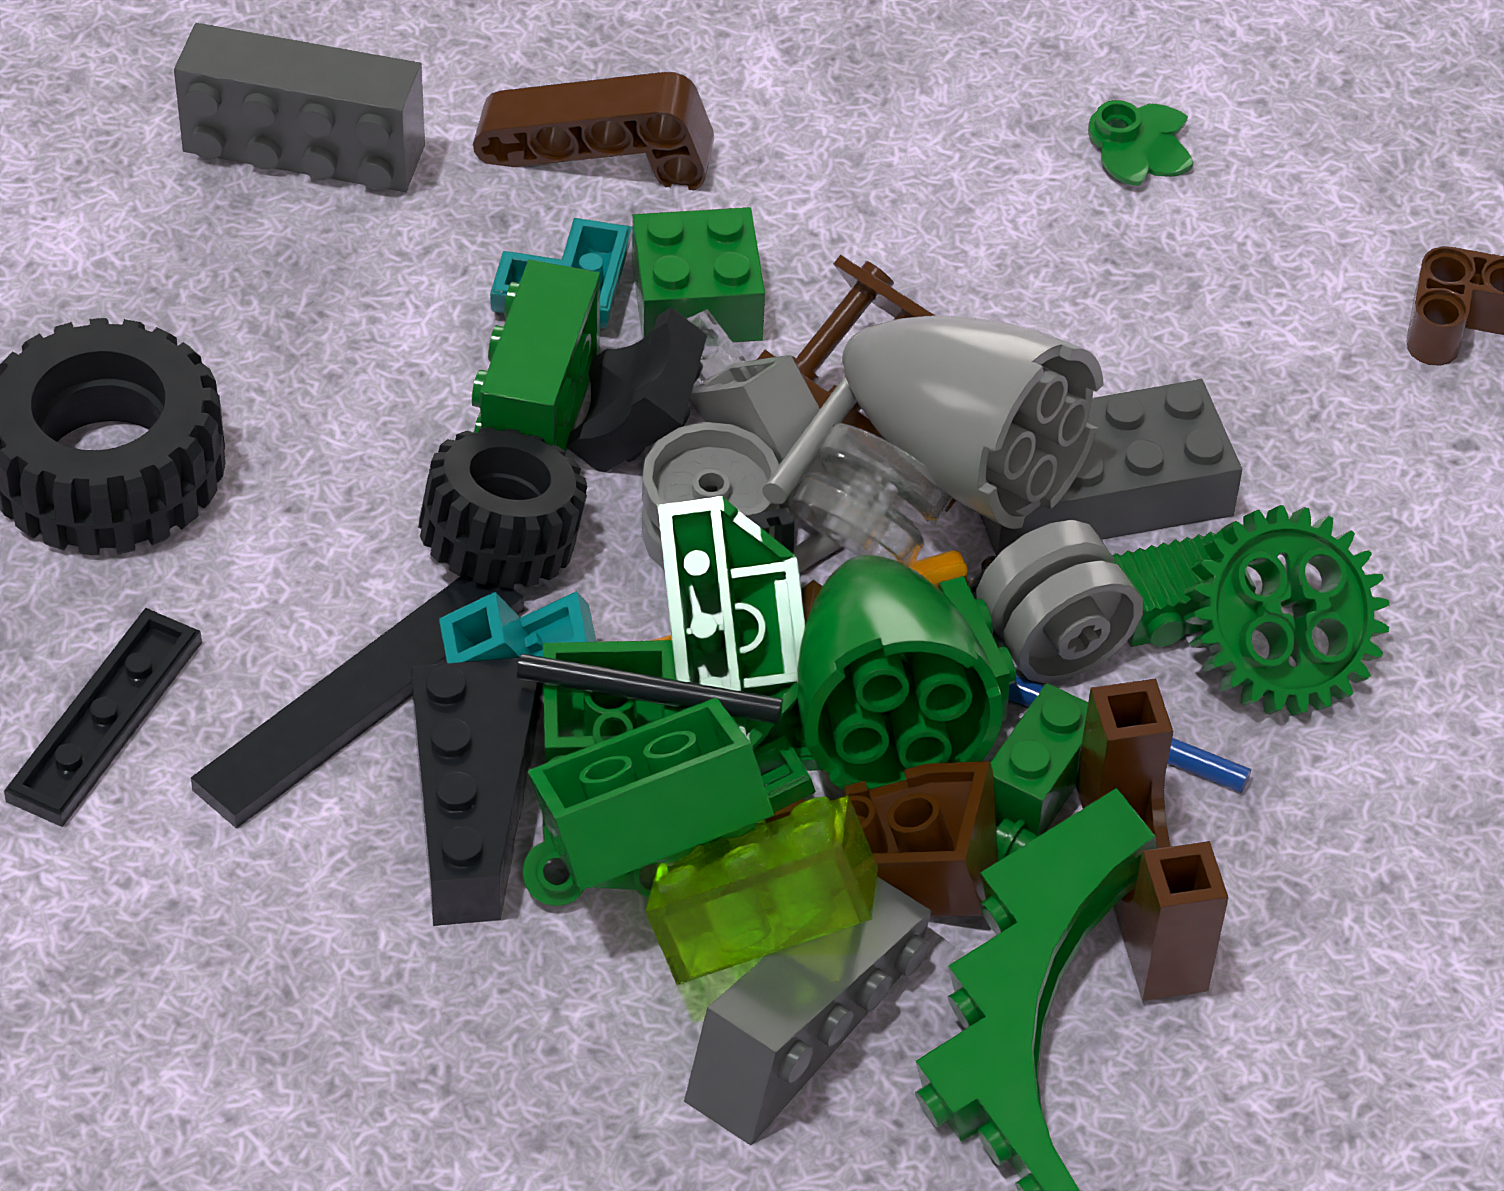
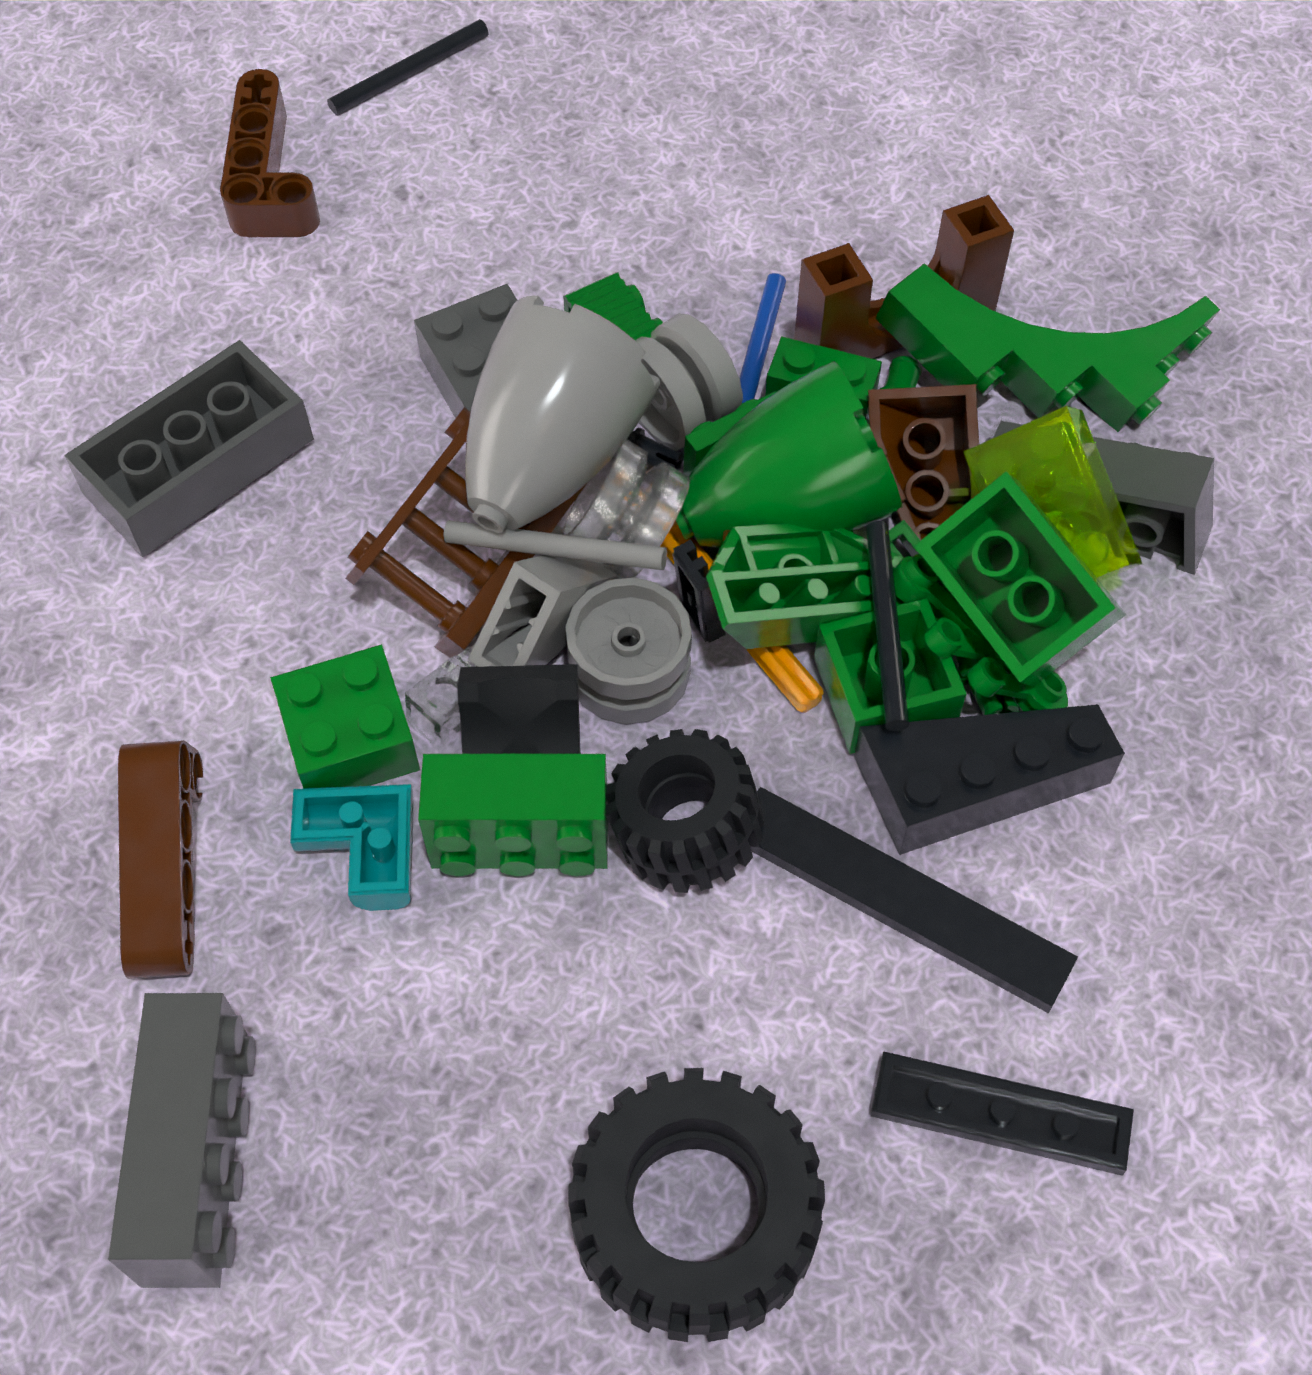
camera: 100 degrees left, 10 degrees up
(494, 631) = (831, 769): teal brick -> none
(1078, 195) = (190, 447): none -> dark grey brick
(1139, 140) = (76, 424): green plate -> none
(1340, 609) = (638, 247): green gear -> none

